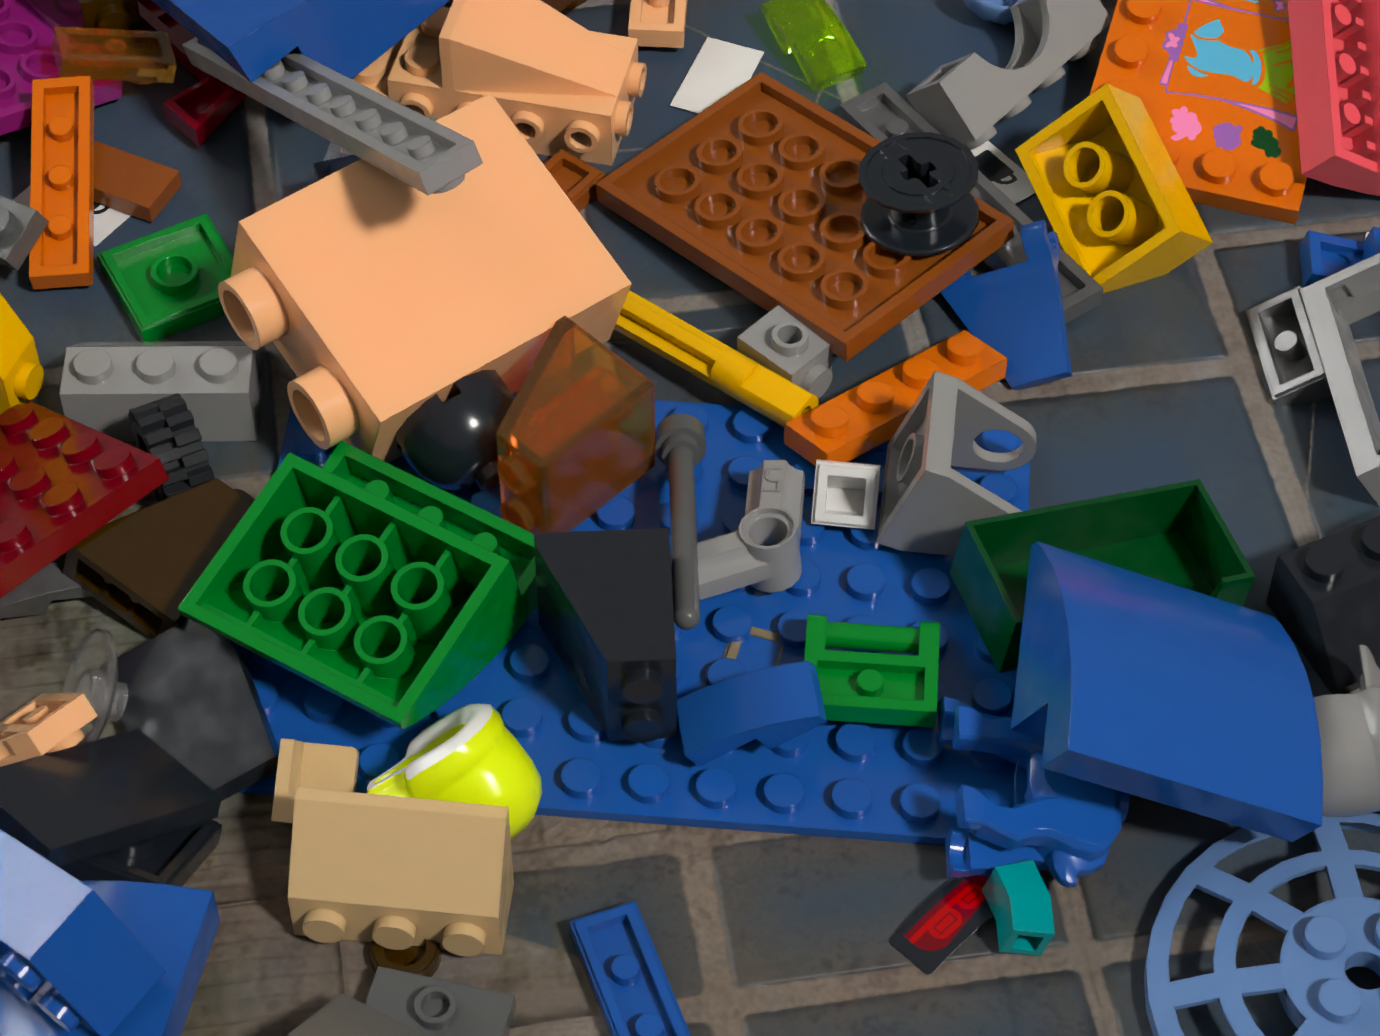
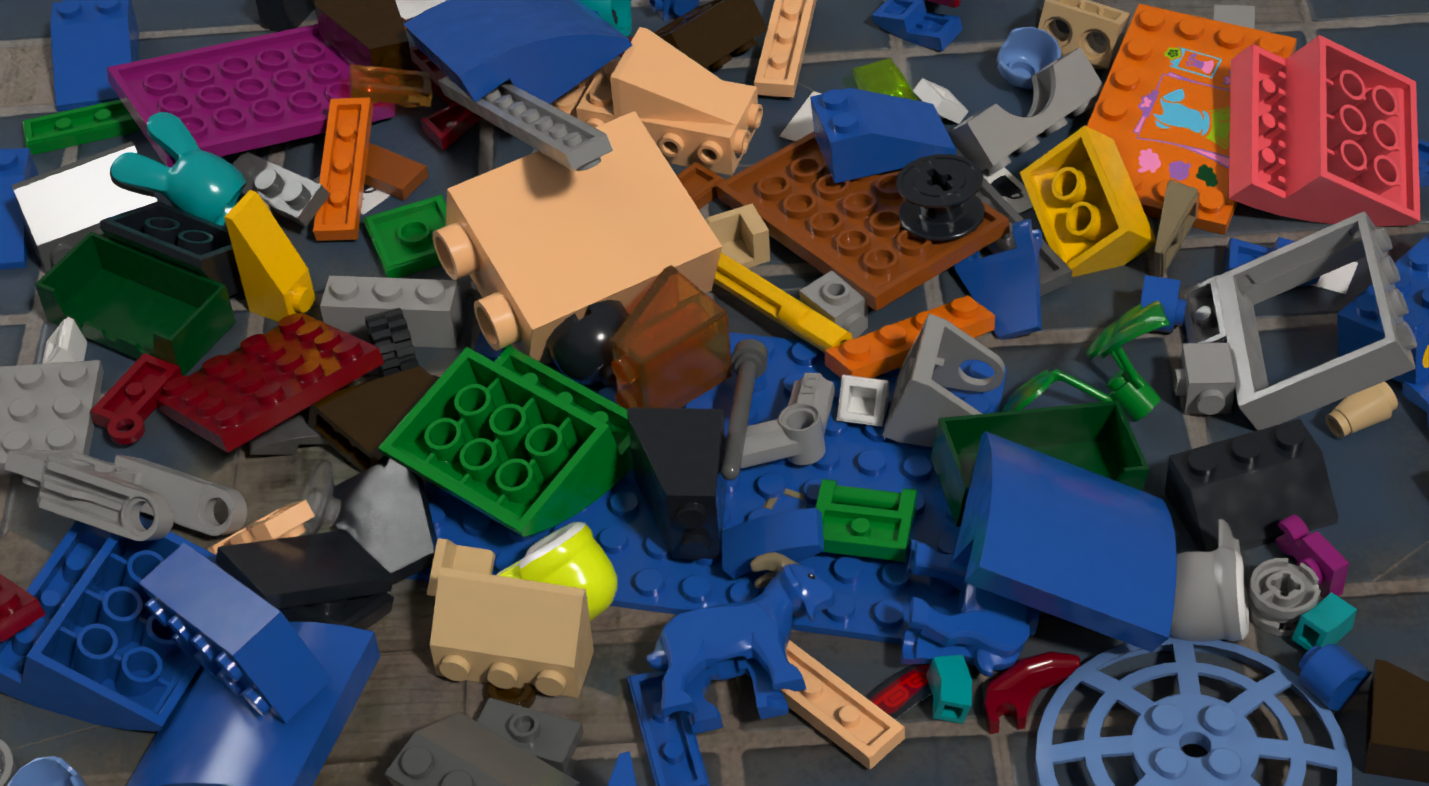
camera: 10 degrees right, 5 degrees down
(646, 255) = (742, 235): none -> tan panel
(726, 861) = (738, 640): none -> blue animal
(812, 101) = (875, 132): none -> blue slope
(833, 927) = (841, 711): none -> light nougat plate
(887, 48) = (942, 99): none -> white plate
(1110, 896) = (1019, 685): none -> dark red piece
(1199, 452) = (1126, 386): none -> green plant
(1228, 332) = (1166, 292): none -> blue plate
(1235, 204) = (1176, 220): none -> dark tan slope
(1303, 436) = (1205, 378): none -> light grey brick

